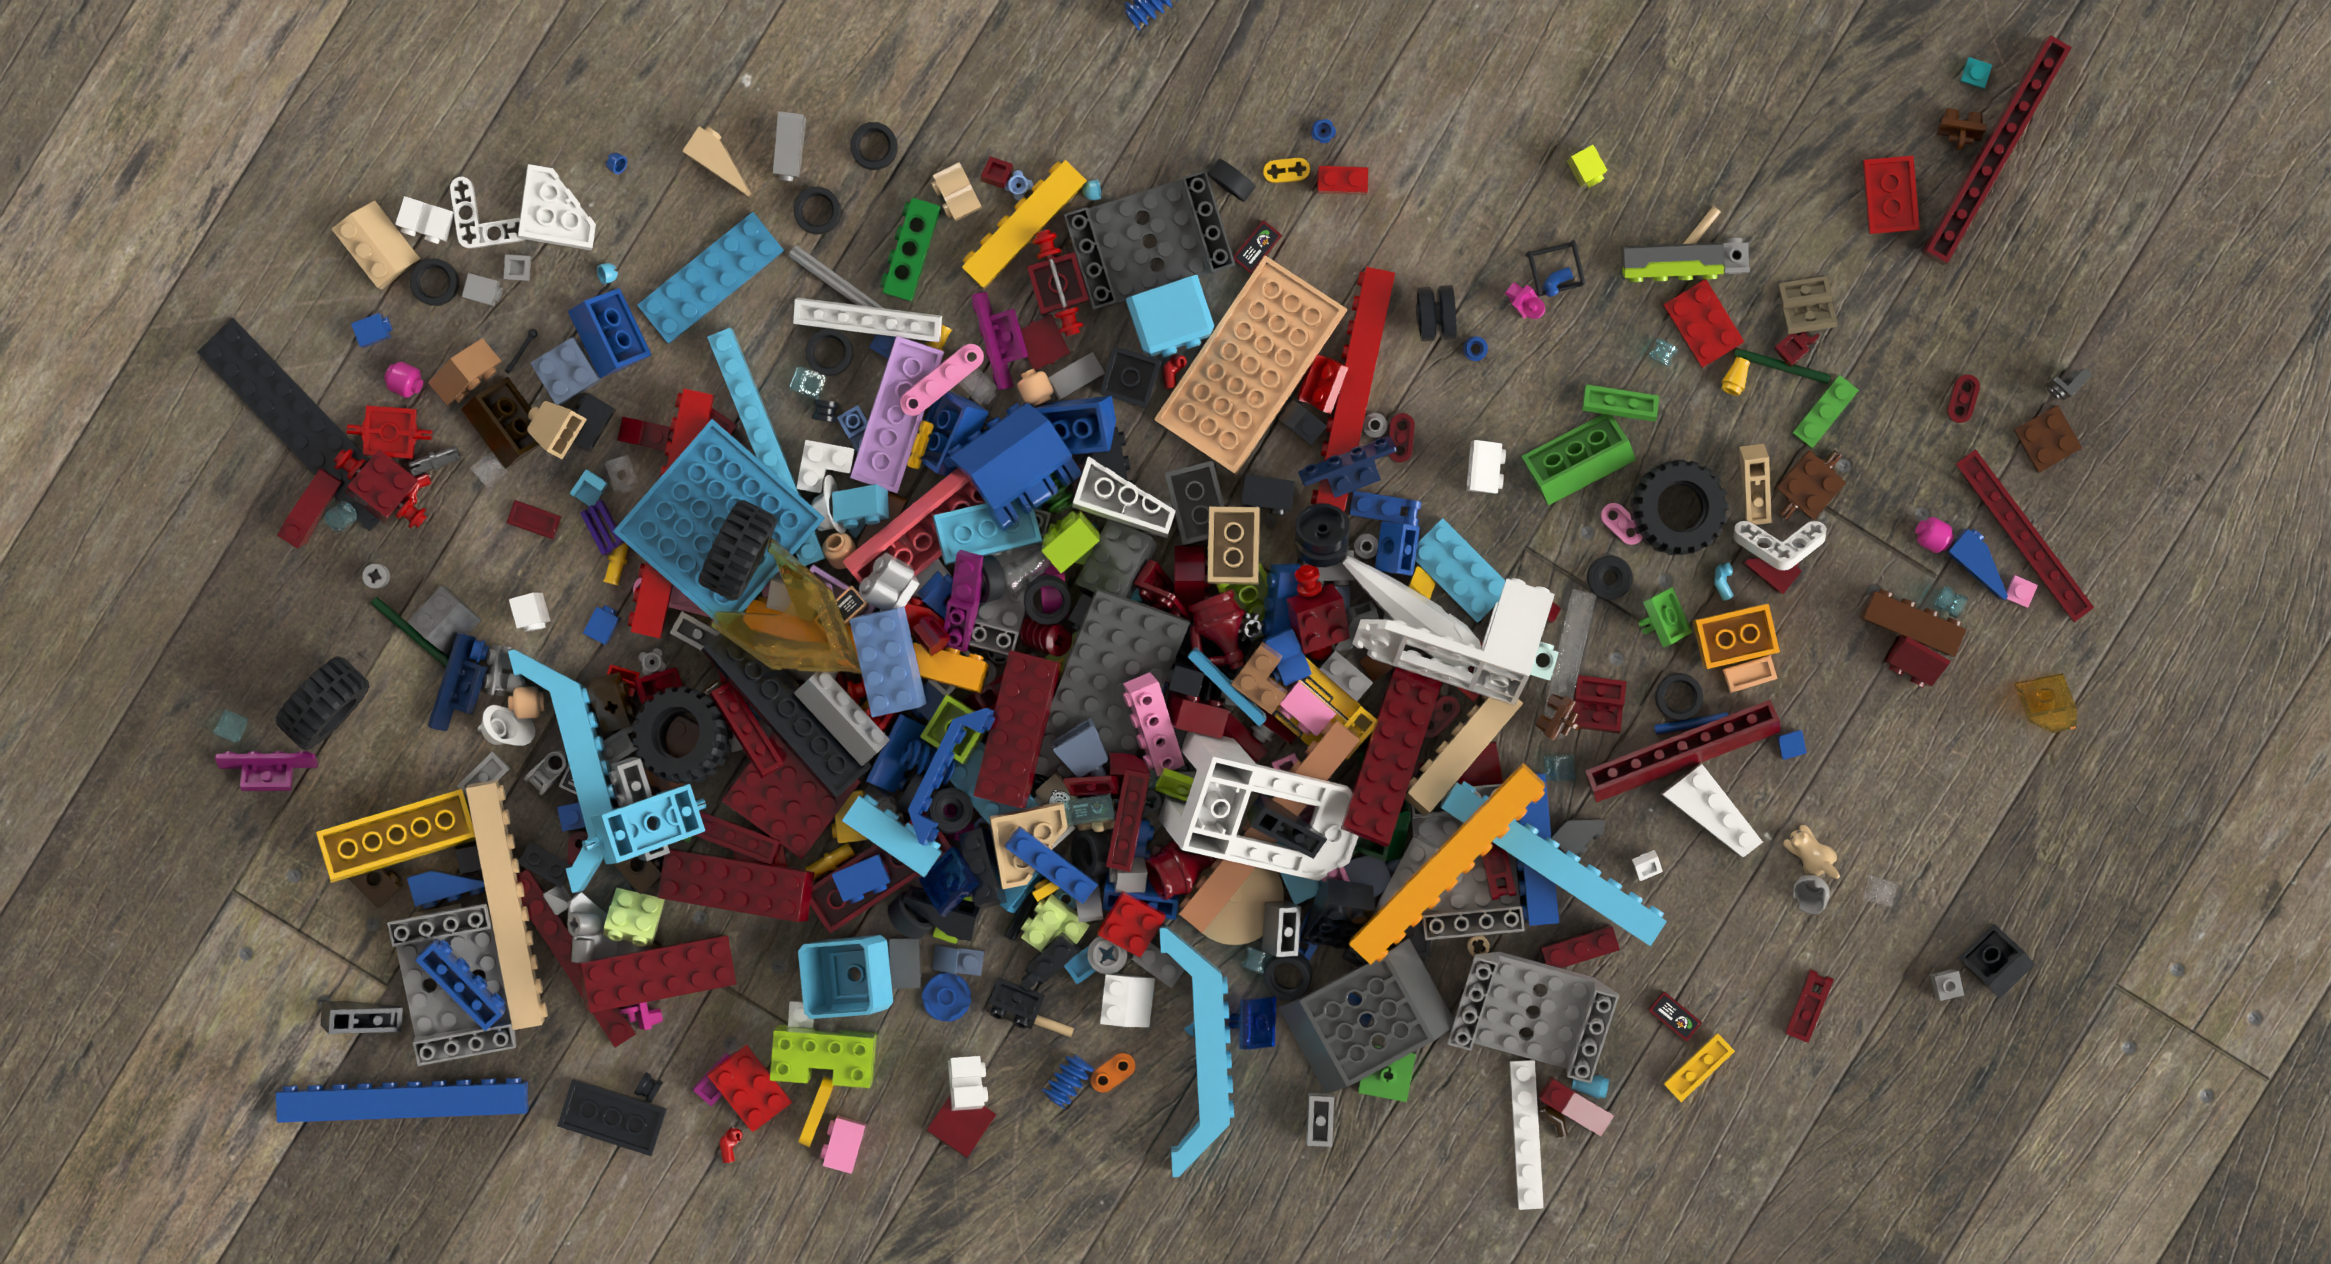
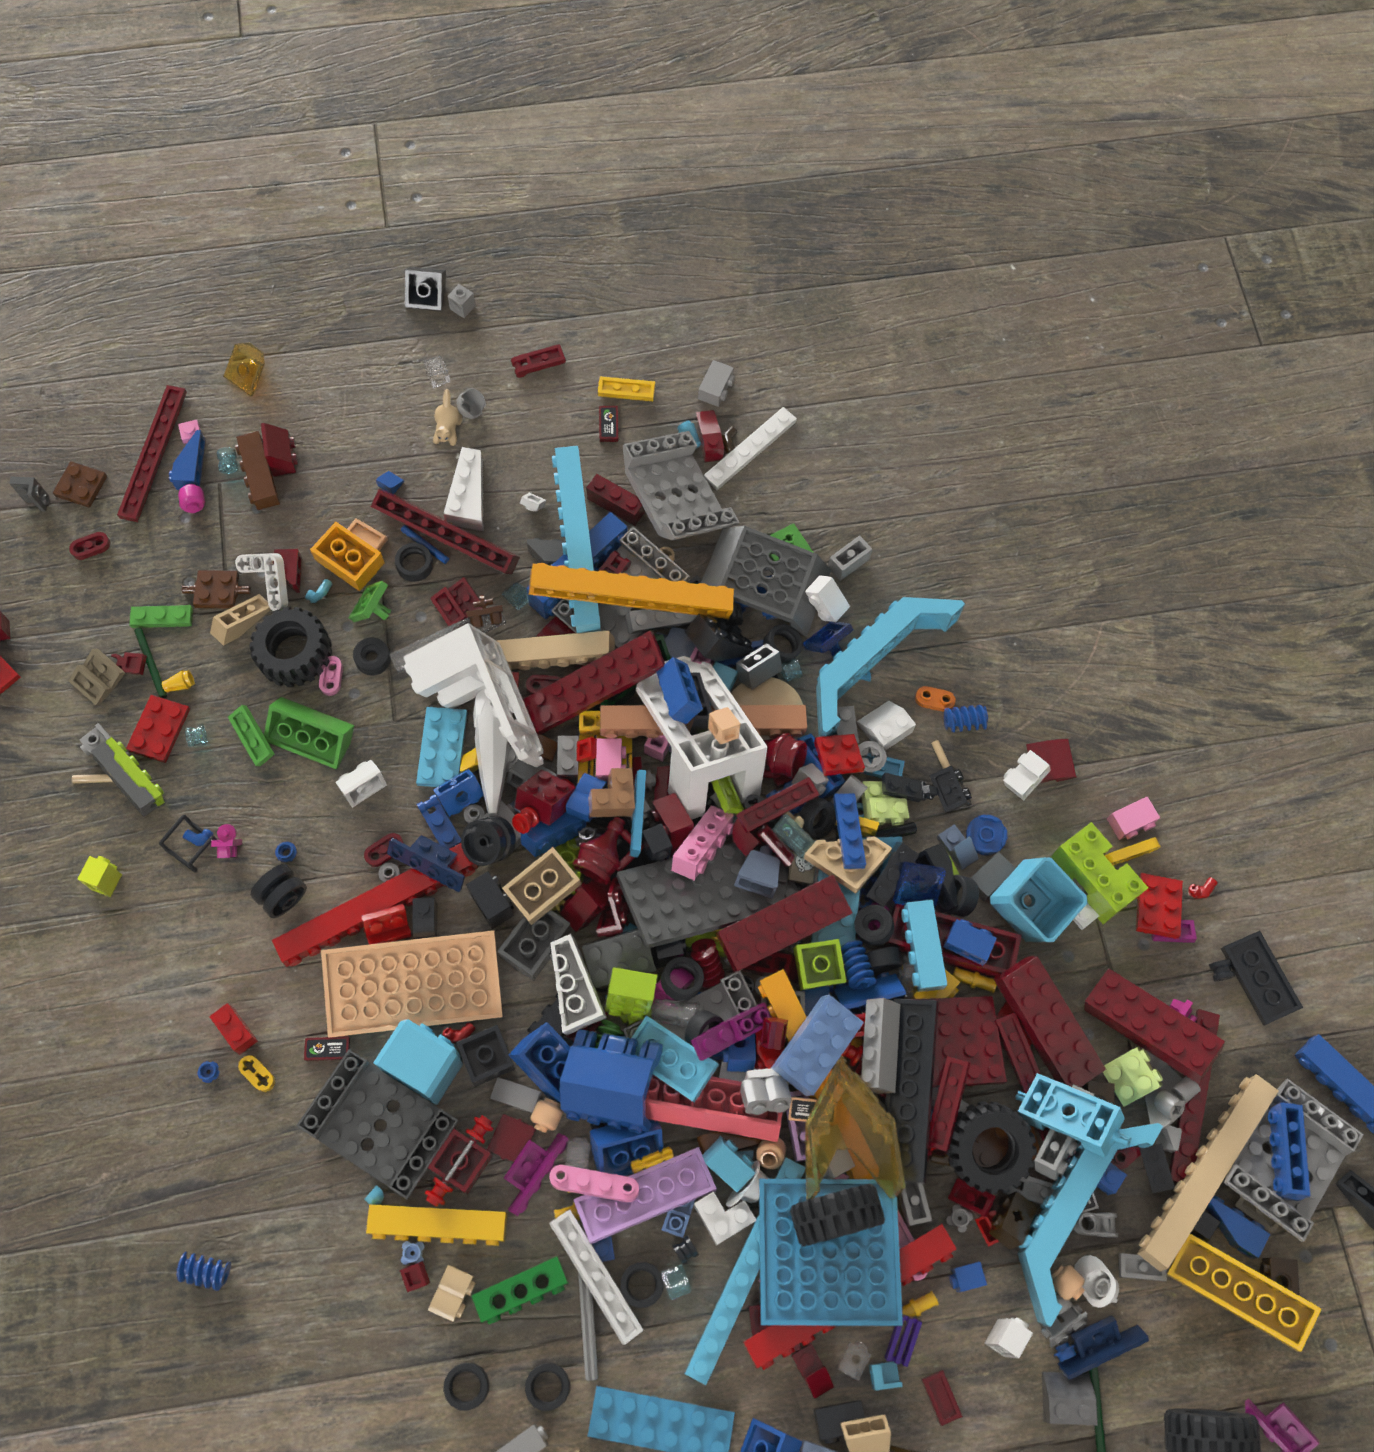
camera: 135 degrees left, 20 degrees down
(925, 827) = (900, 926): blue slope -> none
(1231, 180) = (290, 1102): black tyre -> none
(1234, 827) = (724, 725): none -> light nougat brick
(1294, 1056) = (827, 599): none -> white brick
(1305, 818) = (679, 690): none -> blue brick
(1334, 696) = (586, 749): none -> red plate
(1626, 1162) = (715, 383): none -> light grey brick

